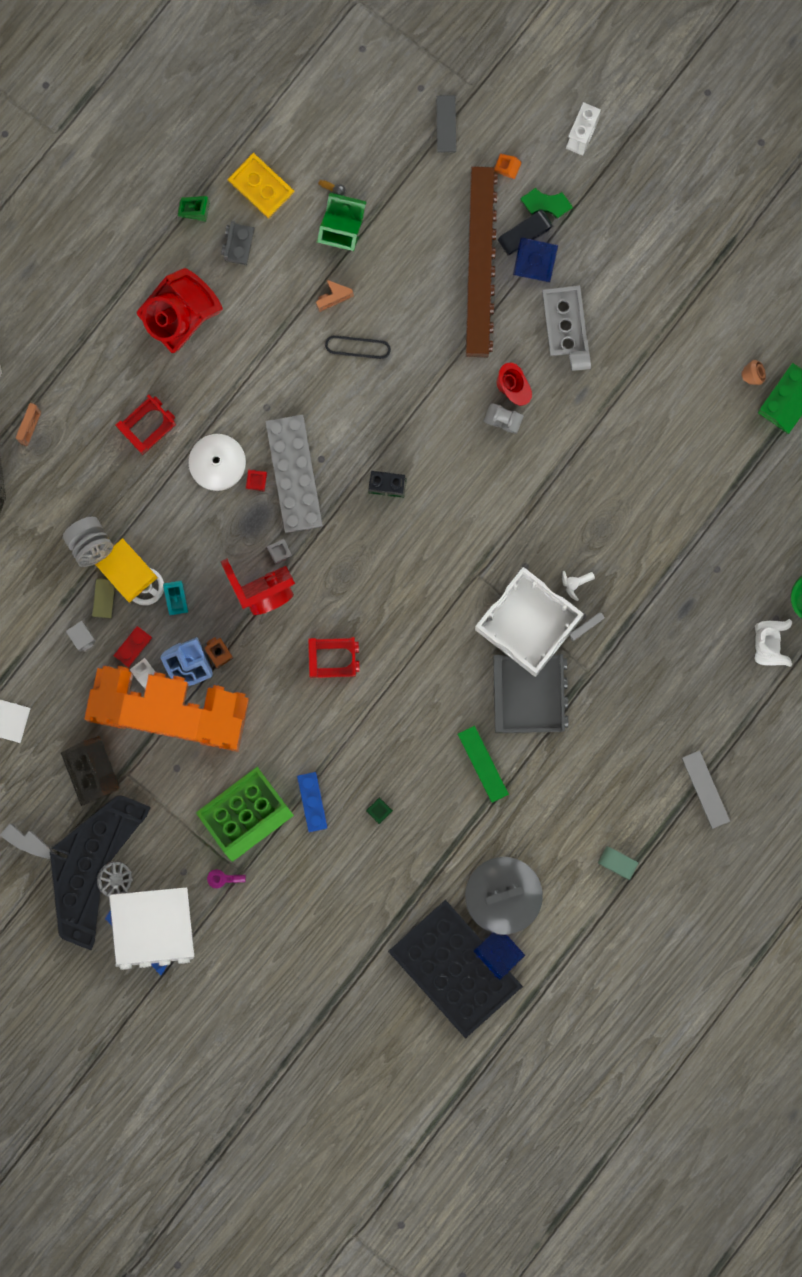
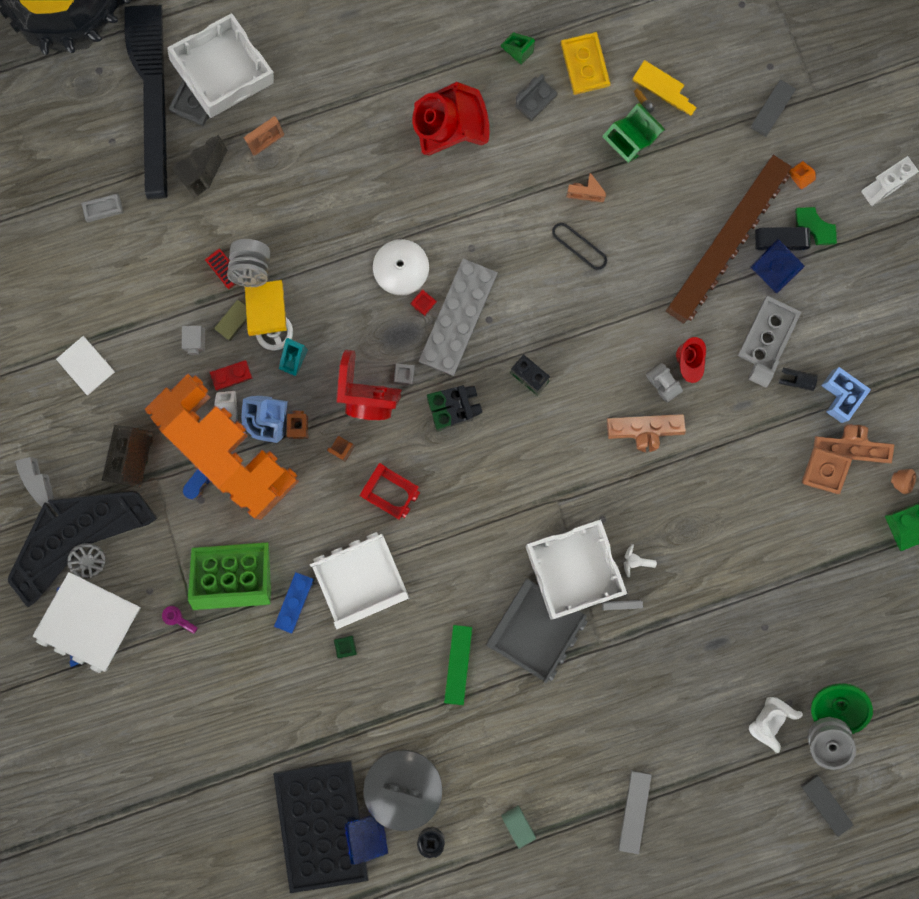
camera: 35 degrees right, 0 degrees up
(64, 560) = (219, 265): none -> tile
(147, 406) = (357, 187): red panel -> none
(165, 753) = (194, 487): none -> blue leg
(268, 648) = (341, 448): none -> dark orange panel
(340, 164) = (663, 86): none -> yellow piece
(343, 547) = (458, 406): none -> black hips
(355, 747) = (359, 580): none -> white panel
(513, 467) = (646, 429): none -> nougat plate
(562, 922) = (432, 834): none -> black wheel
(617, 343) = (802, 379): none -> black hinge
(662, 329) = (848, 394): none -> light blue brick
(685, 405) = (826, 470): none -> nougat tile
(694, 371) = (856, 445): none -> nougat plate

